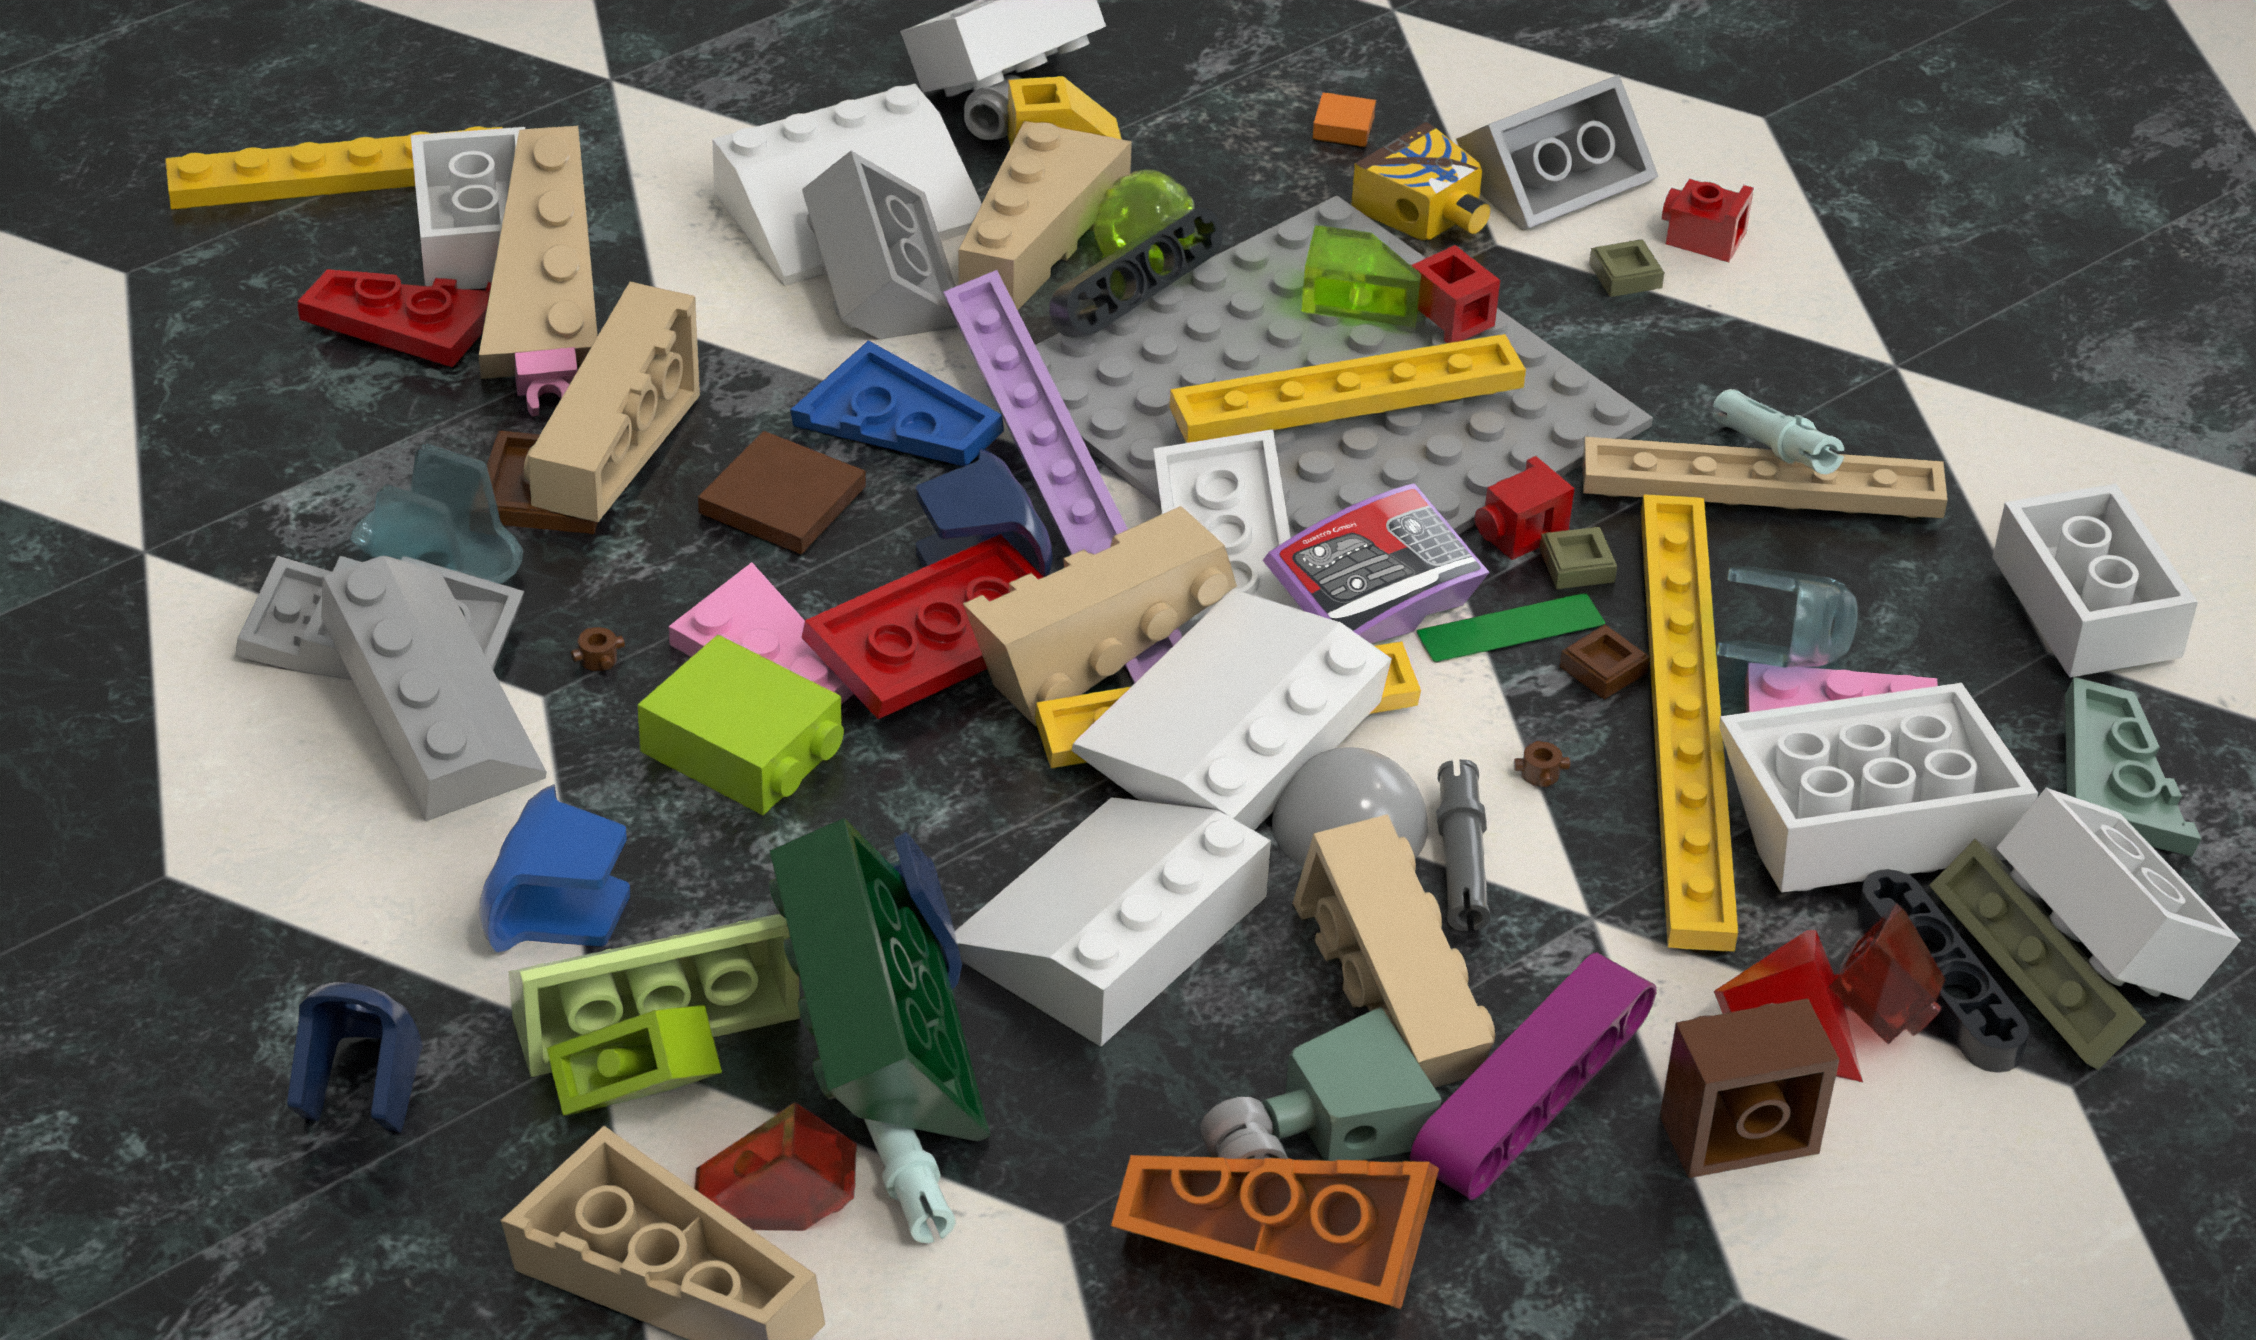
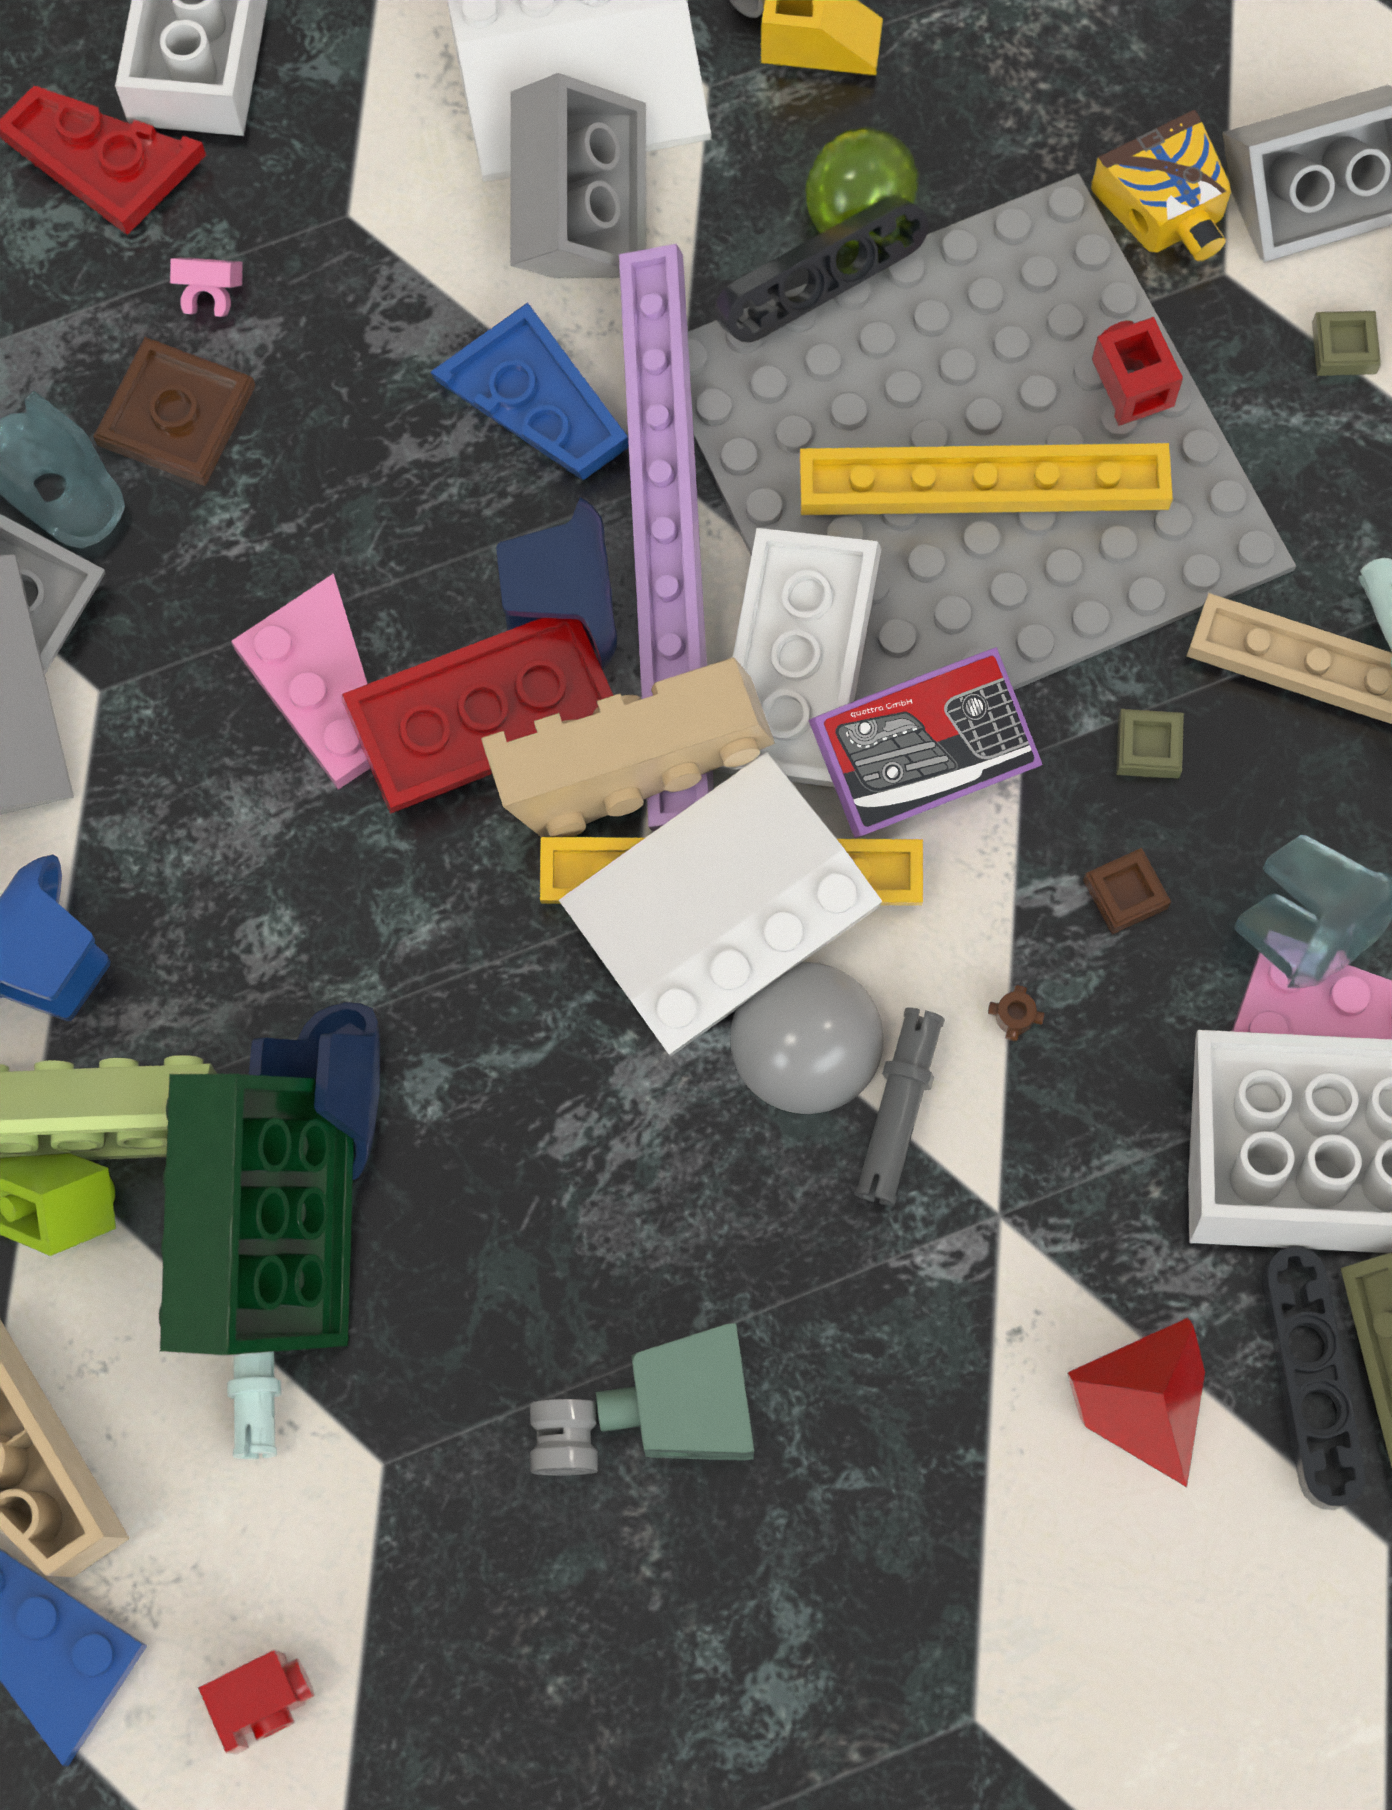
camera: 20 degrees right, 30 degrees up
(543, 259) = (223, 150): tan wedge -> none
(597, 649) = (161, 648): reddish brown piece -> none
(618, 404) = (251, 351): tan wedge -> none
(740, 724) = (260, 790): lime brick -> none
(782, 492) = (393, 477): reddish brown tile -> none
(782, 1173) = (128, 1367): clear red slope -> none
(1040, 205) = (754, 147): tan wedge -> none
(1118, 911) = (537, 1105): white slope -> none
(1309, 1220) = (558, 1554): orange wedge -> none
(1344, 119) = (1123, 62): orange tile -> none
(1358, 278) = (1044, 323): clear neon green slope -> none
(1392, 945) = (776, 1257): tan wedge -> none
(1510, 627) = (1052, 817): green sticker -> none
(1524, 508) = (1112, 677): red brick -> none
(1534, 1075) = (865, 1417): magenta beam -> none
(1686, 727) = (1177, 996): yellow plate -> none
(1748, 1087) = (1052, 1510): reddish brown brick -> none
(1890, 978) = (1247, 1392): clear red slope -> none

